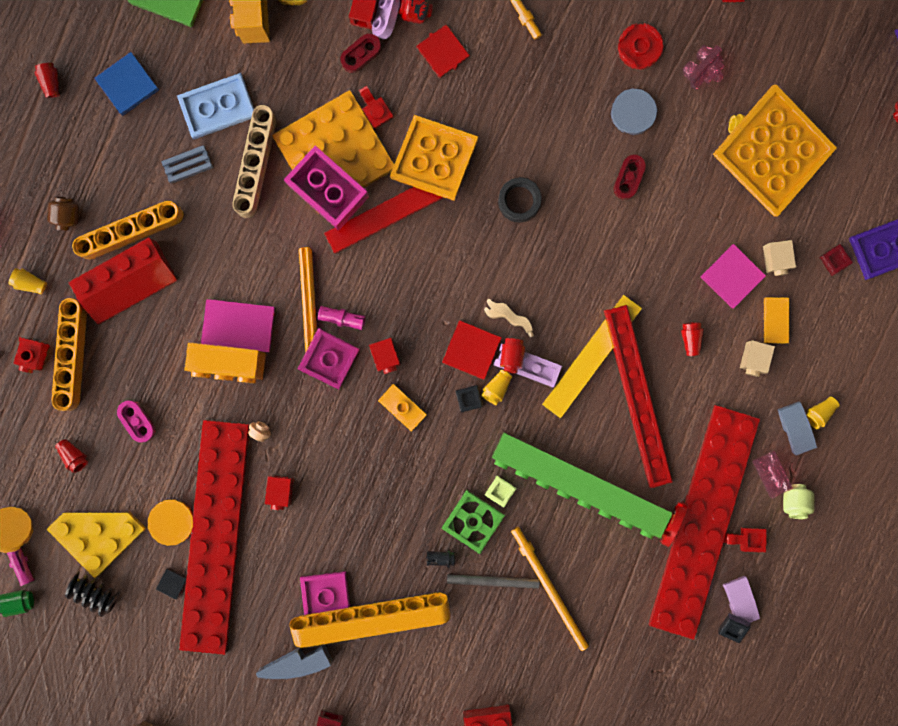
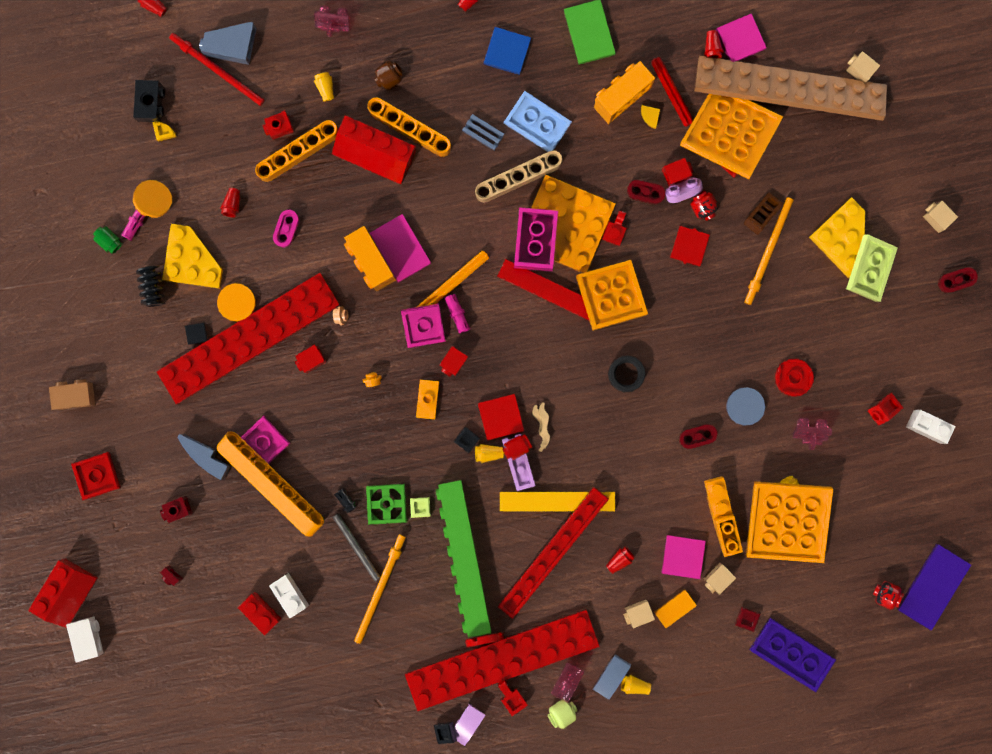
camera: 55 degrees right, 0 degrees up
(343, 446) = (372, 379): none -> light orange plate
(492, 681) = (289, 595): none -> white brick
(723, 210) = (722, 516): none -> light orange slope

